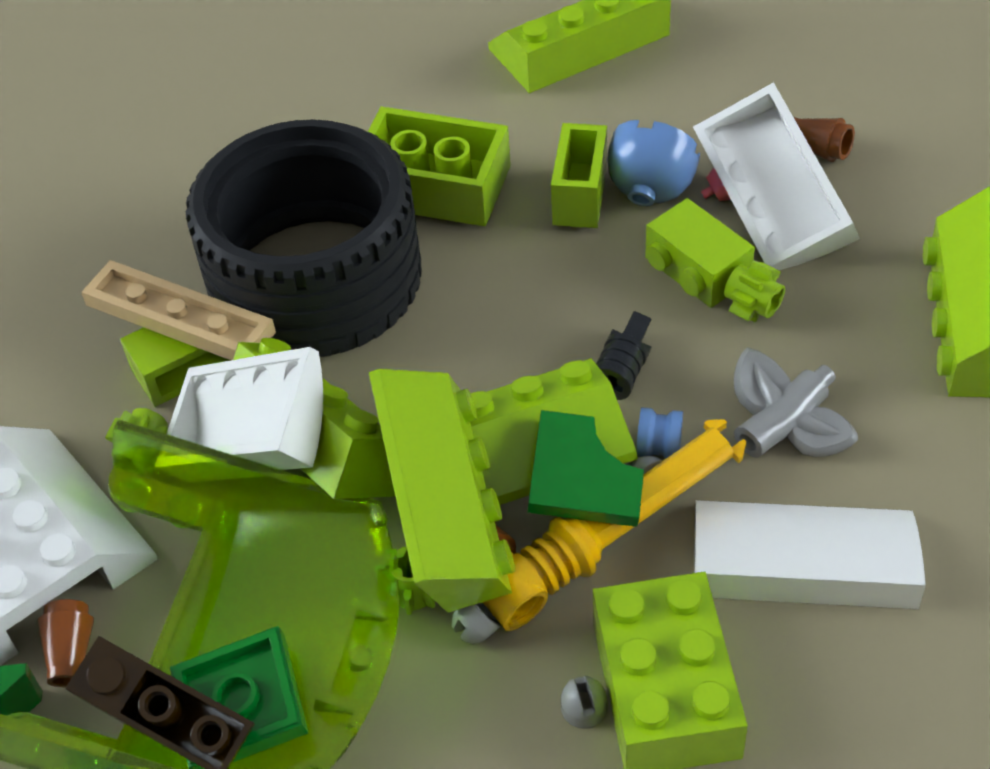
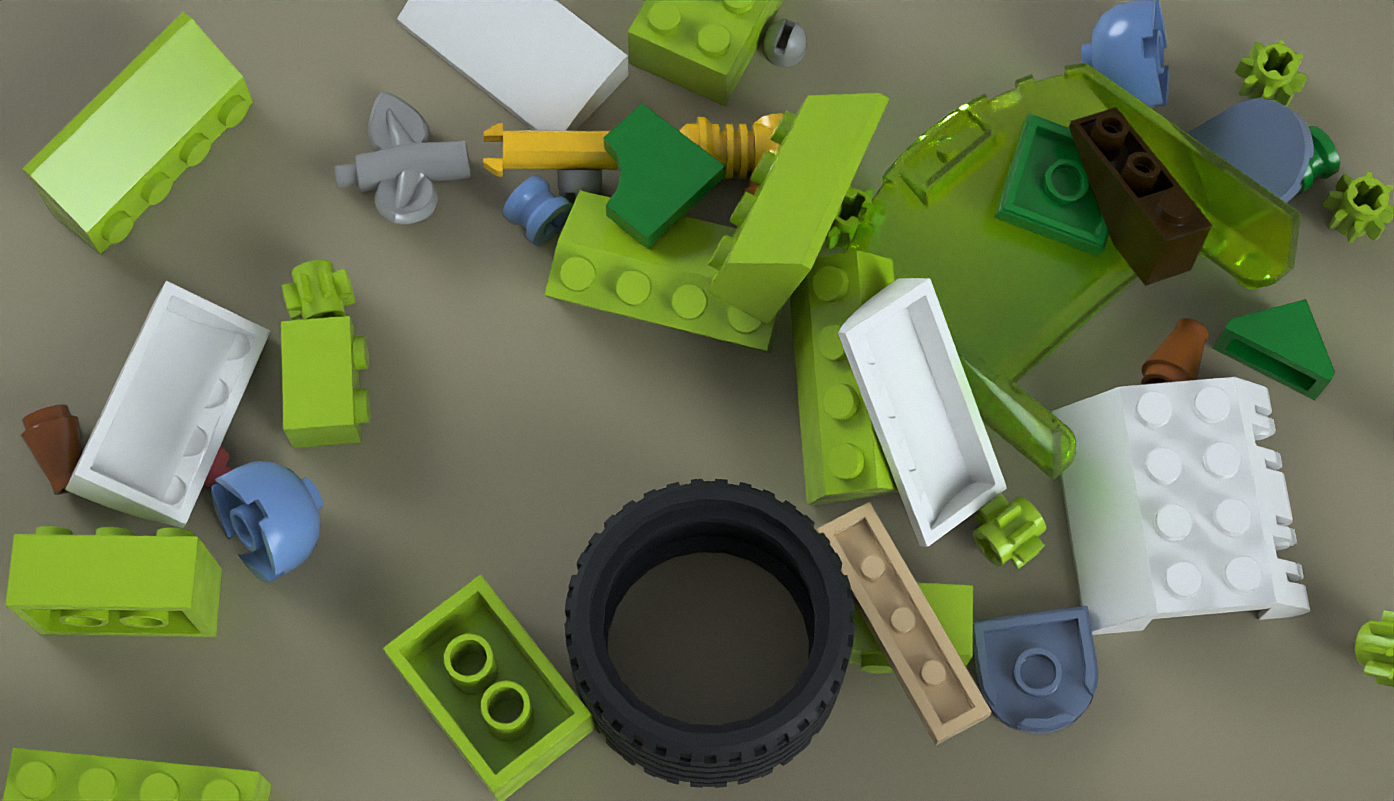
camera: 150 degrees left, 20 degrees up
(77, 387) = (1036, 668): none -> sand blue tile
(579, 175) = (351, 554): lime brick -> none
(625, 355) = (494, 317): black hinge -> none
(699, 73) = (114, 583): none -> lime brick

